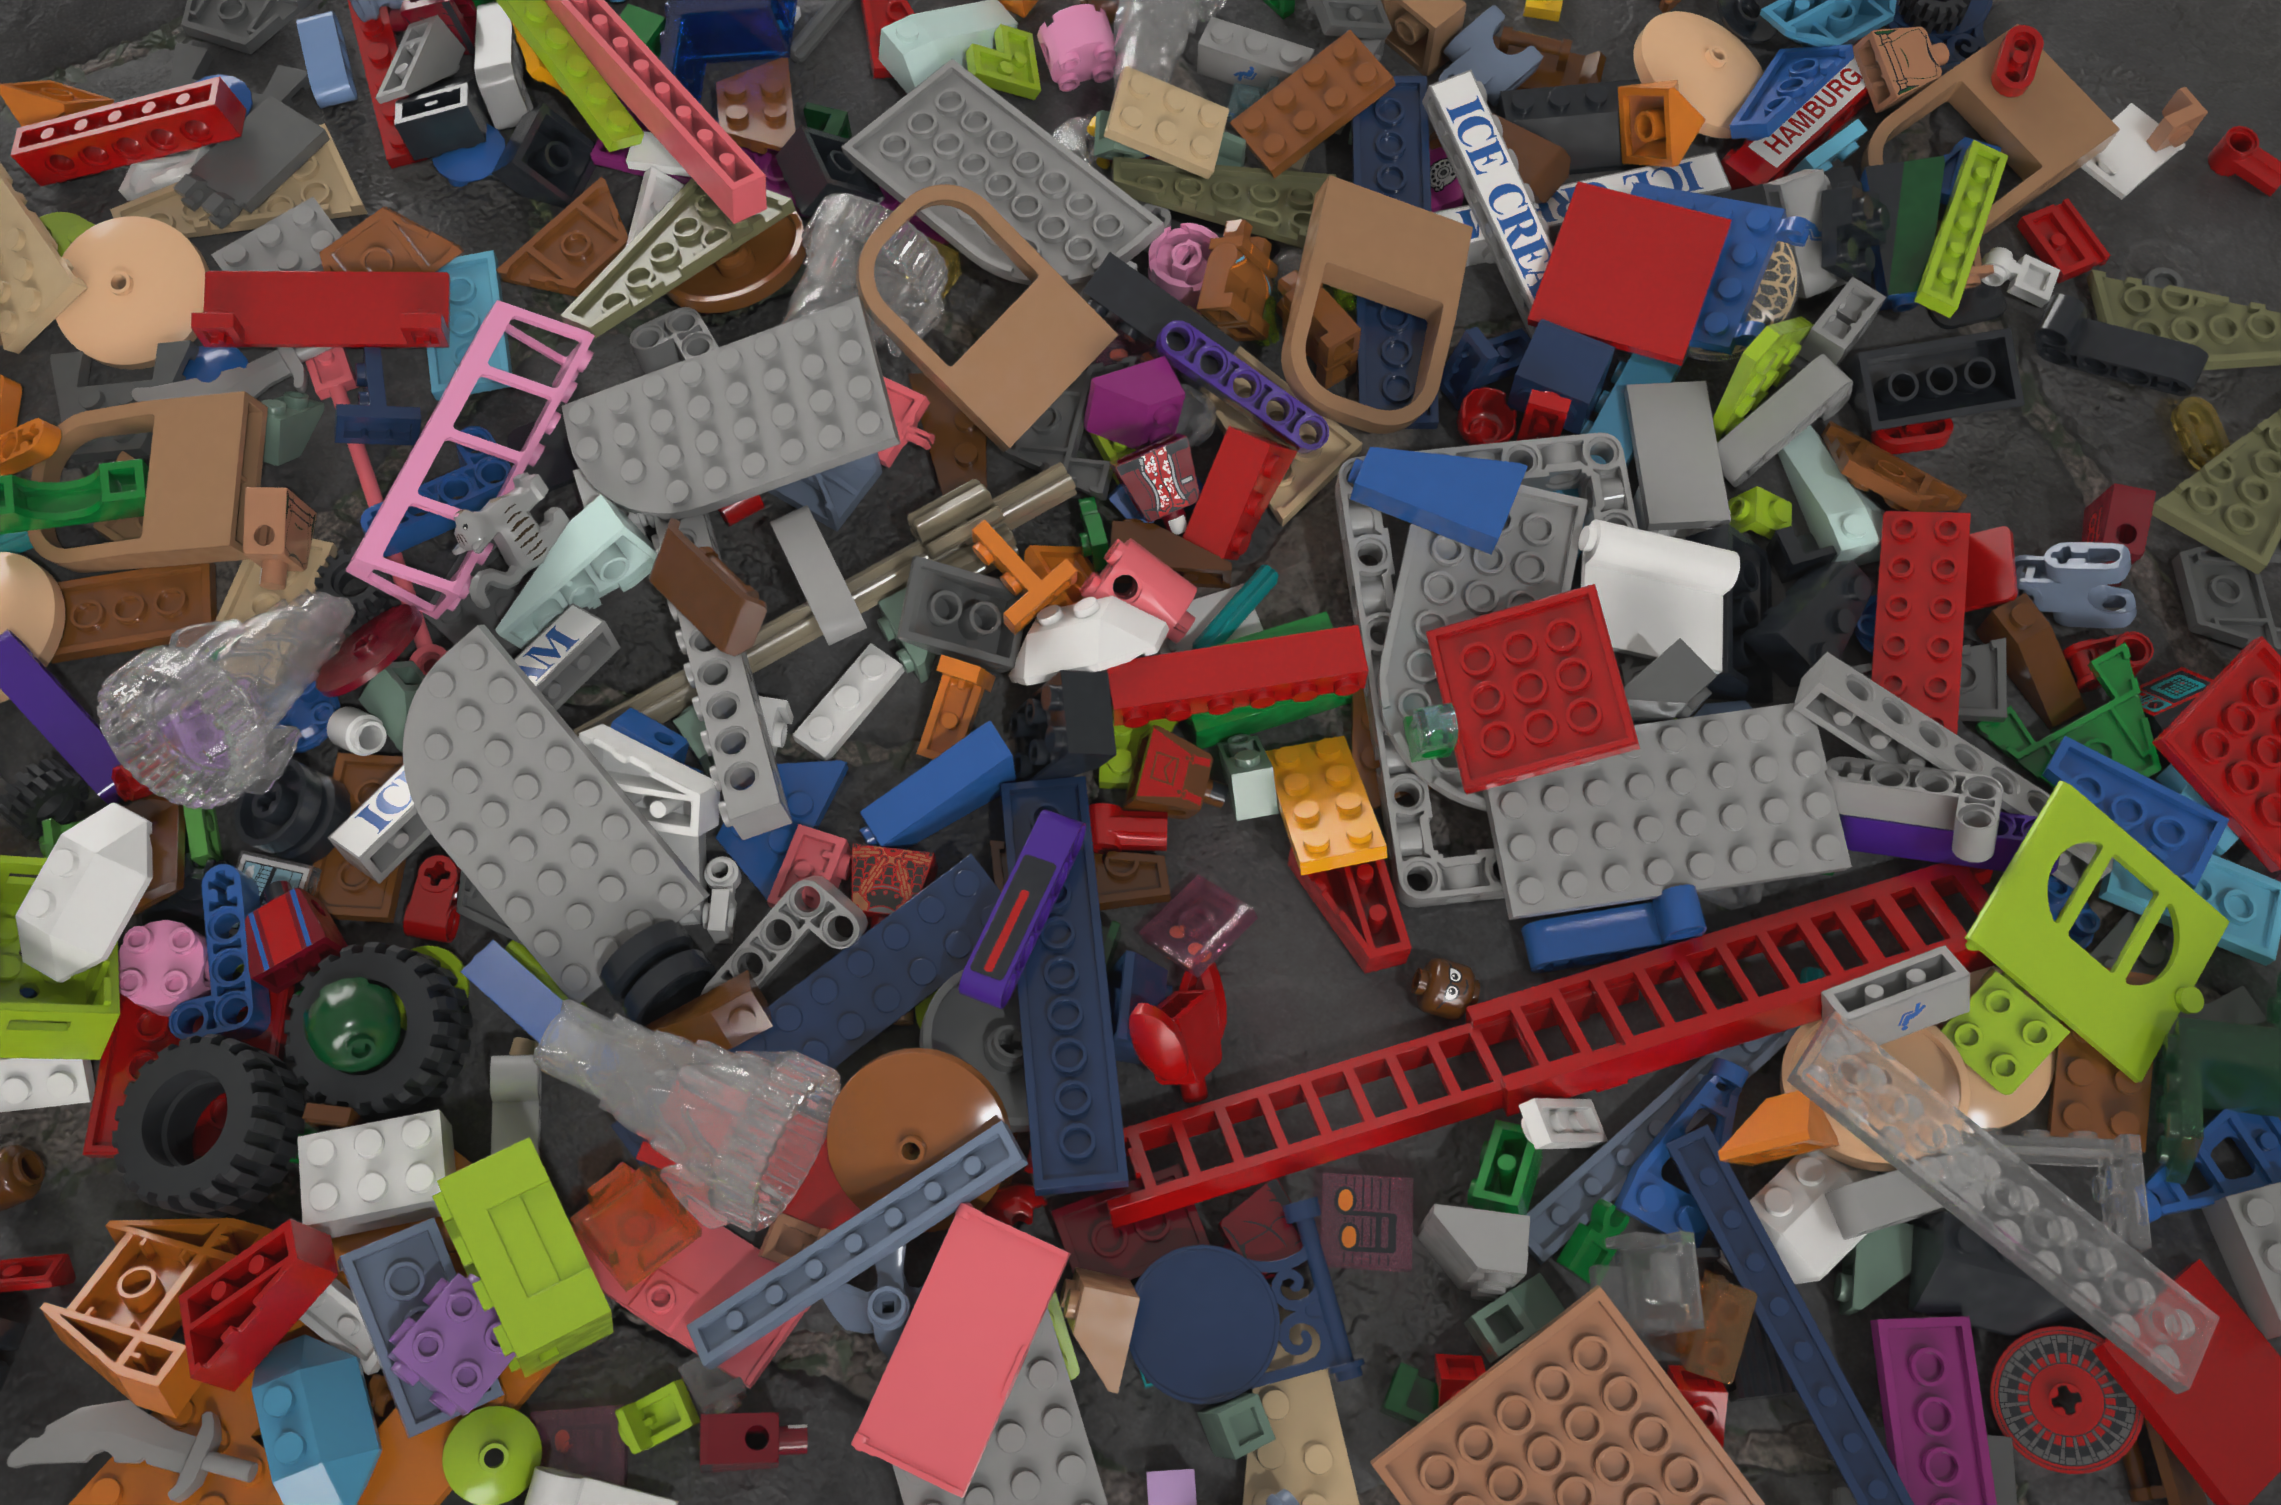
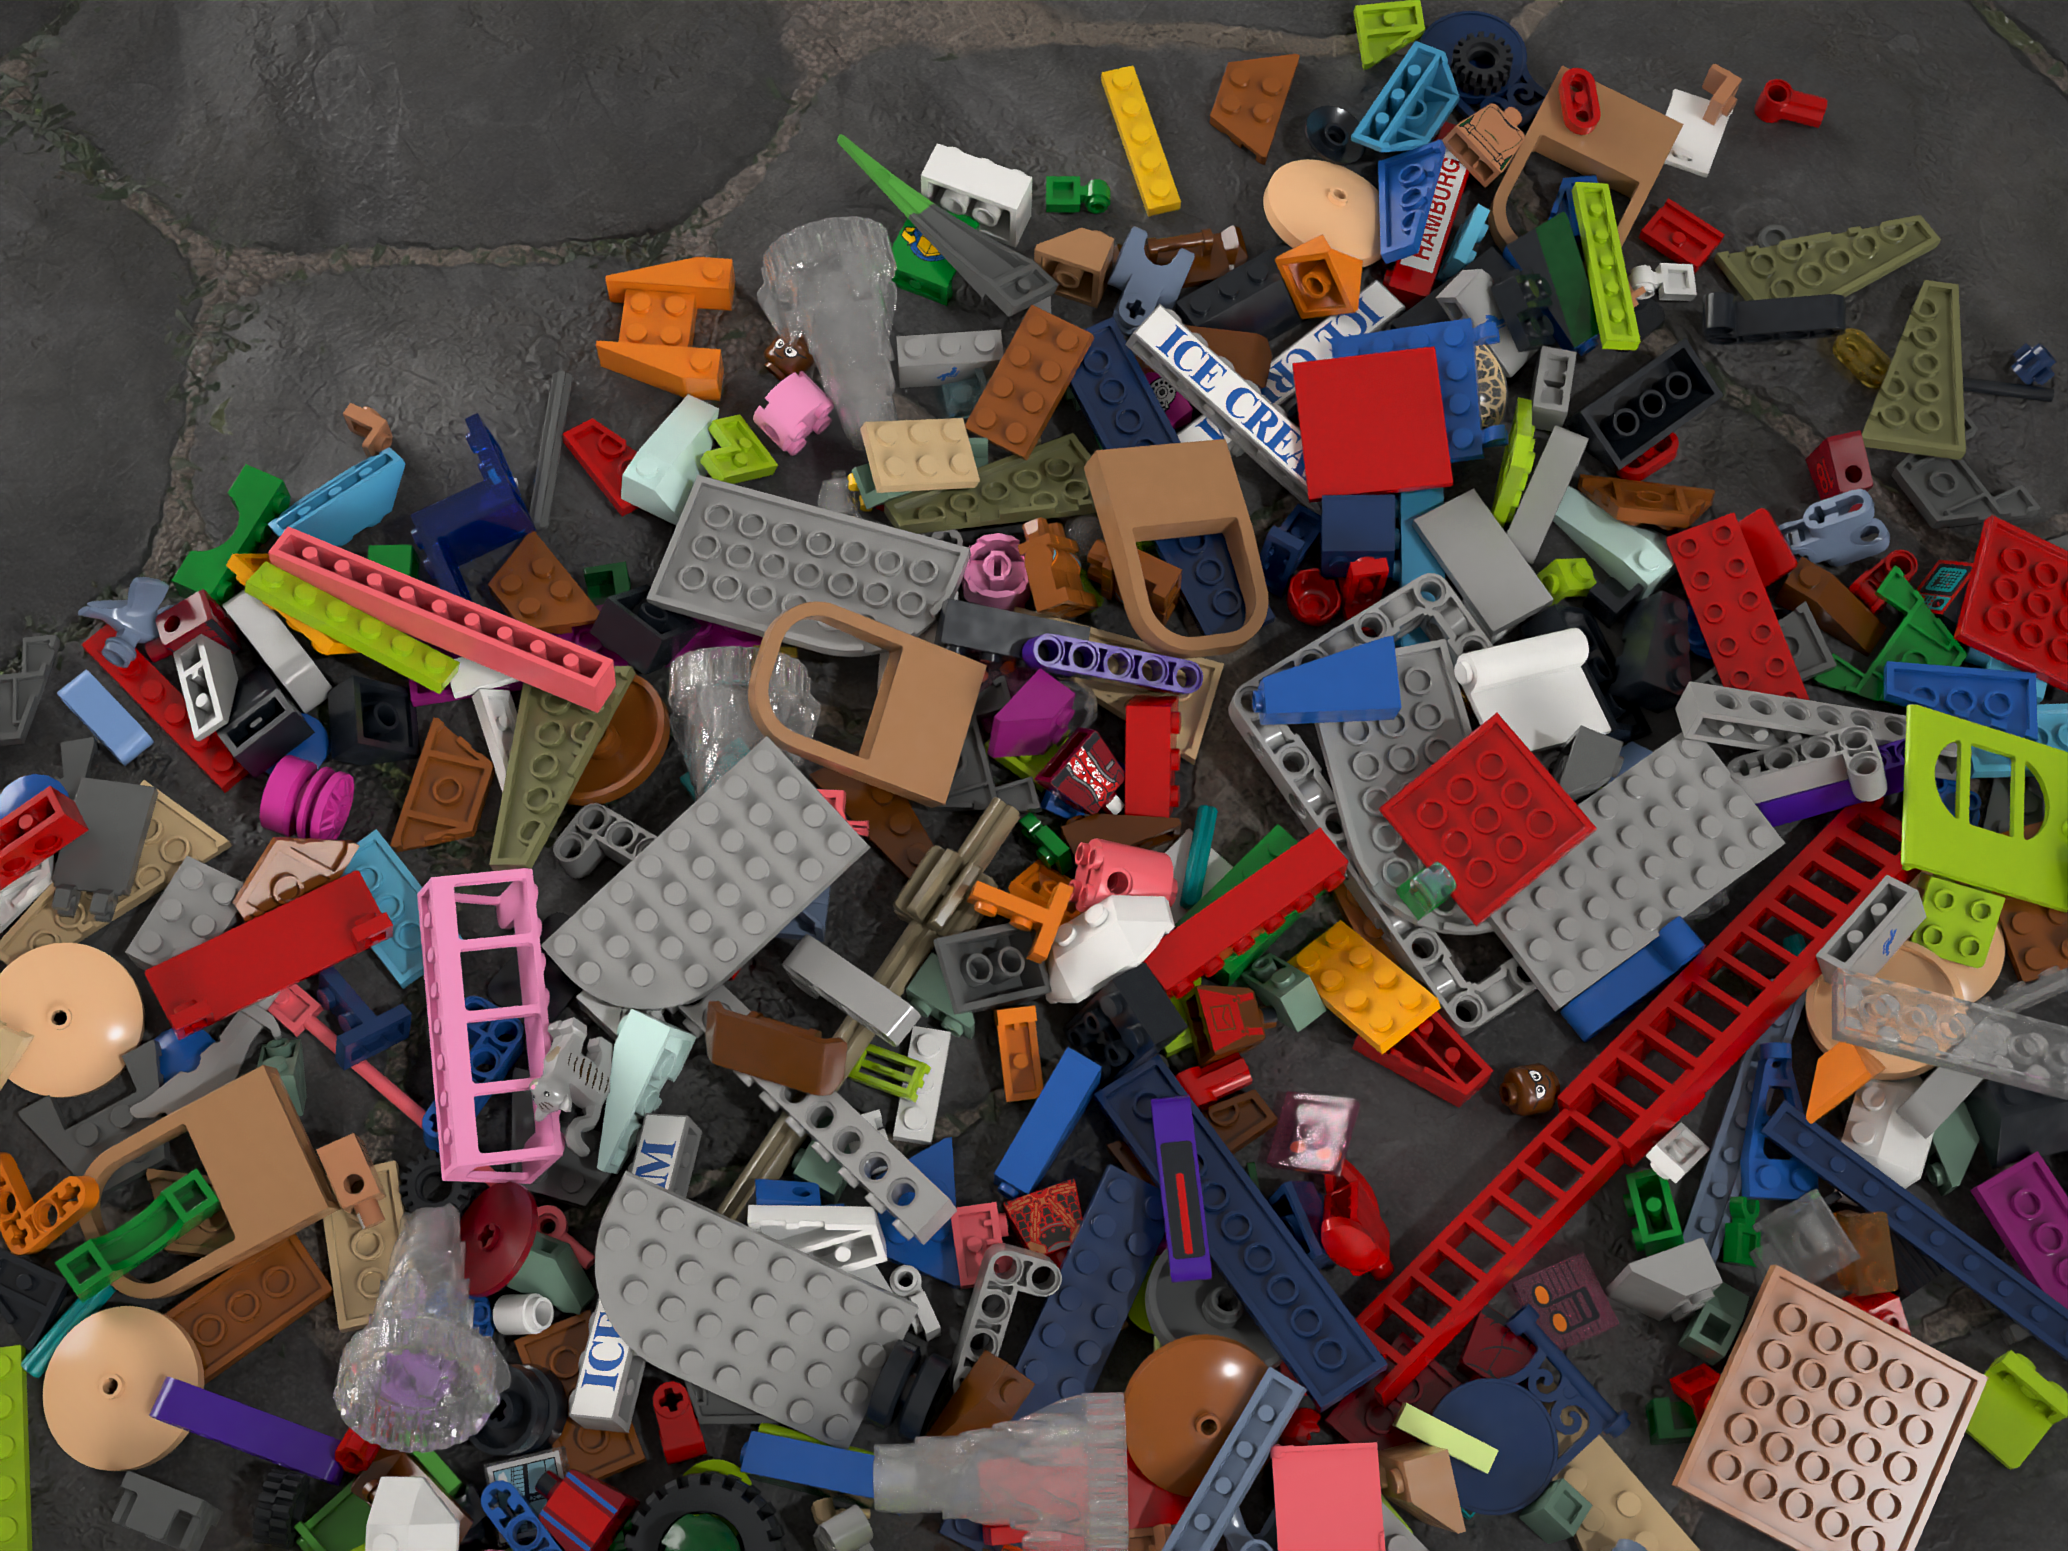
camera: 30 degrees left, 0 degrees up
(443, 194) = (306, 800): none -> dark pink wheel
(836, 690) = (914, 1081): none -> lime tile
(1155, 1289) = (1445, 1436): none -> yellowish green piece

